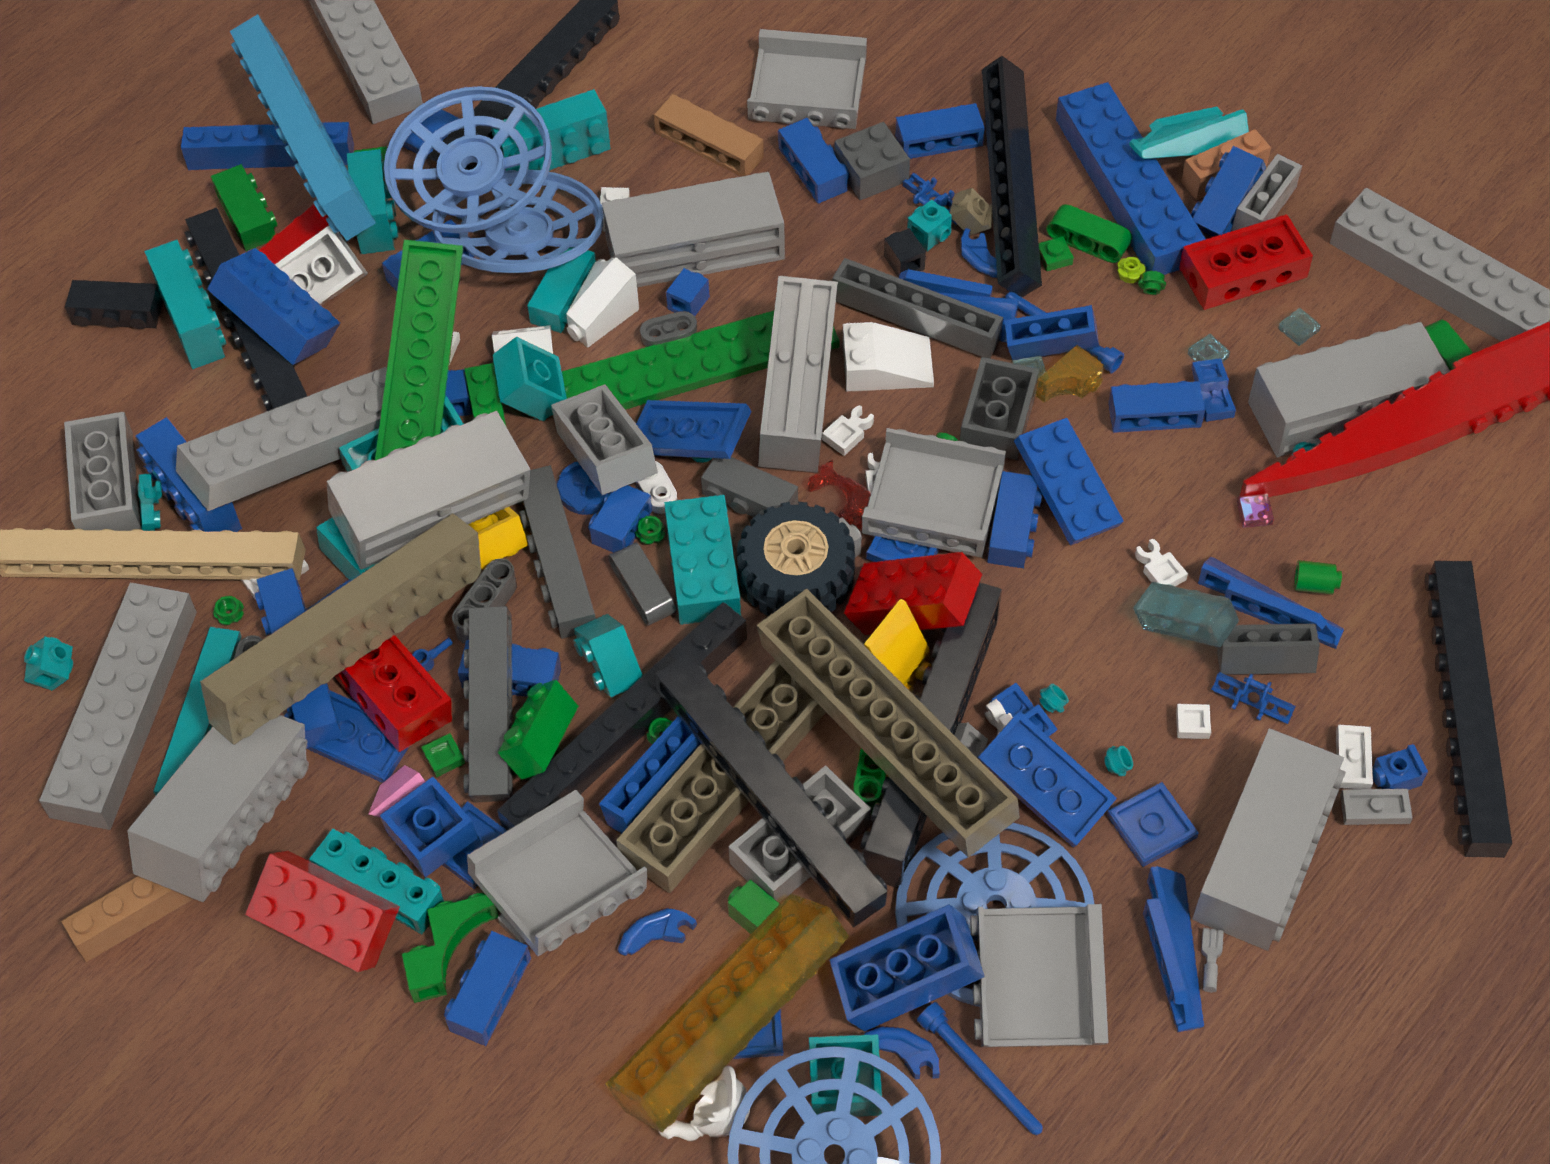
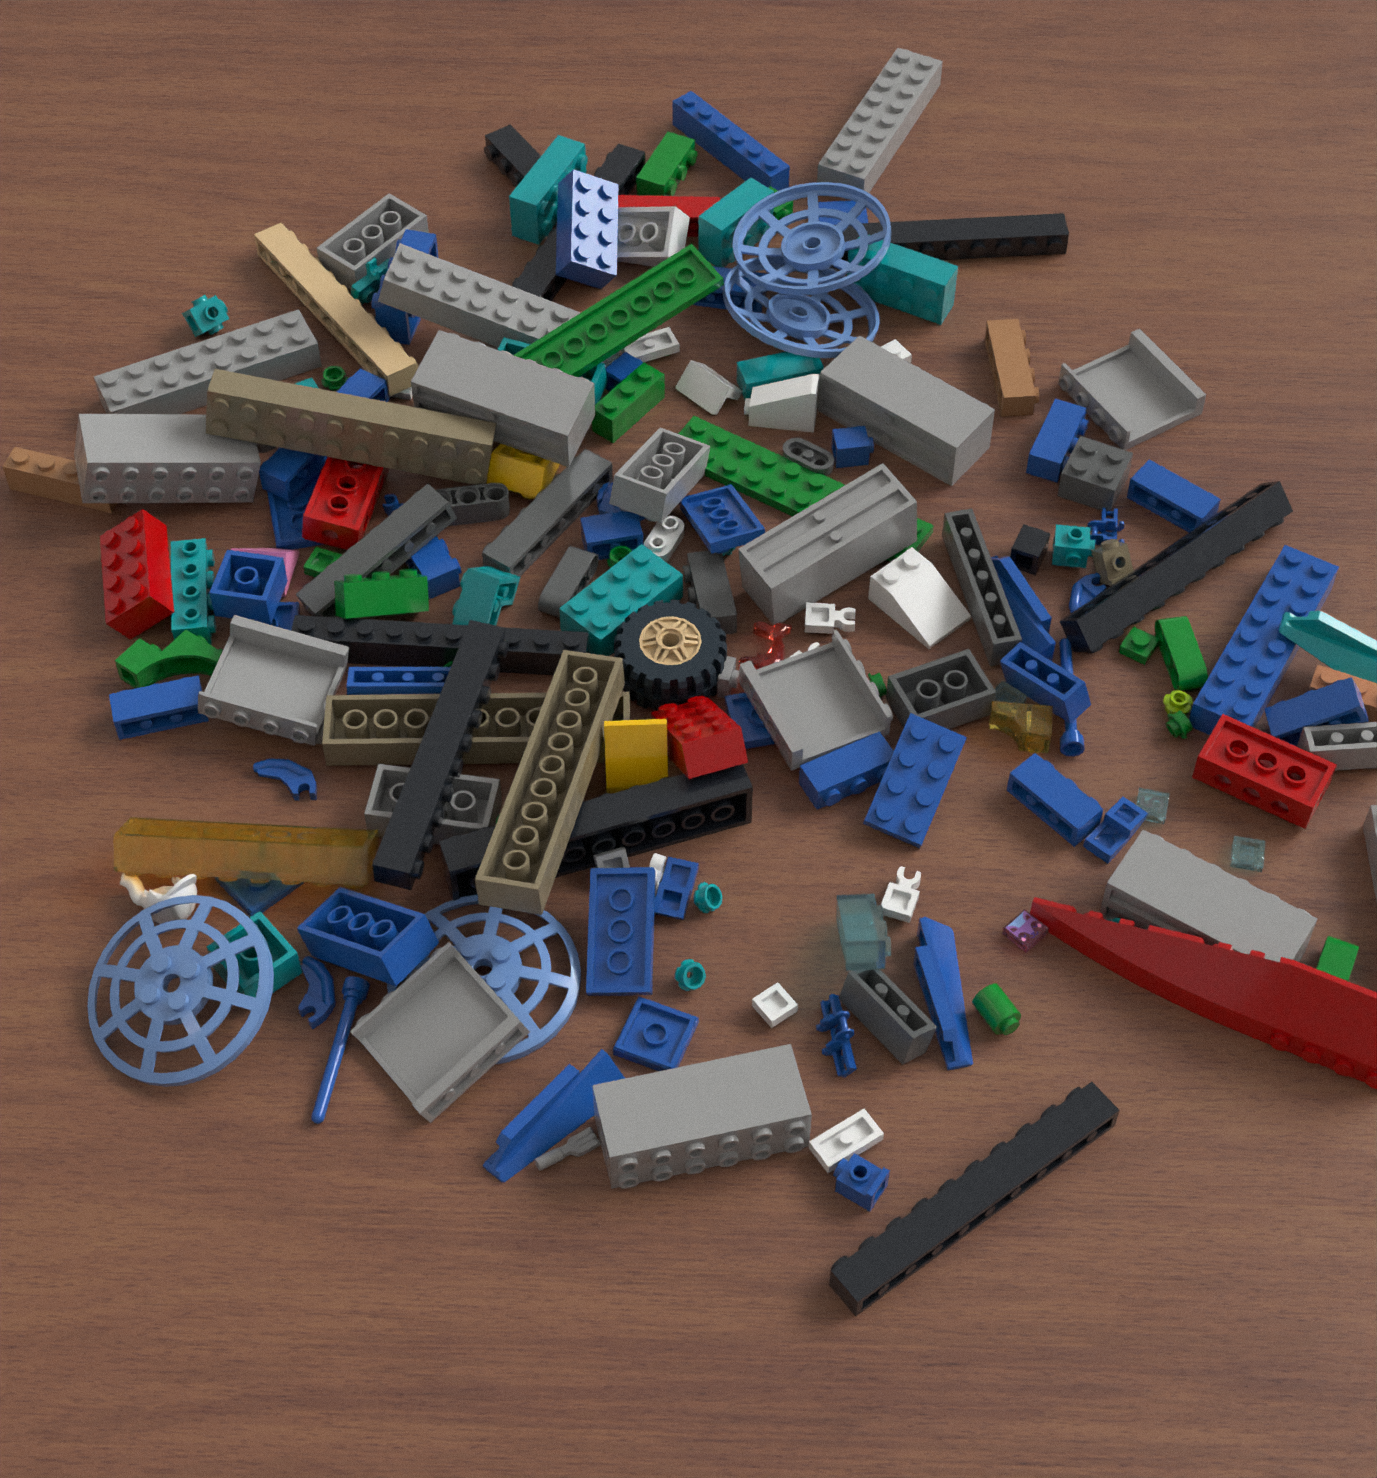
camera: 50 degrees right, 5 degrees down
(301, 129) = (738, 137): dark azure brick -> none
(528, 378) = (672, 400): teal brick -> none
(750, 906) = (350, 812): green brick -> none
(1376, 806) = (812, 1184): light grey plate -> none

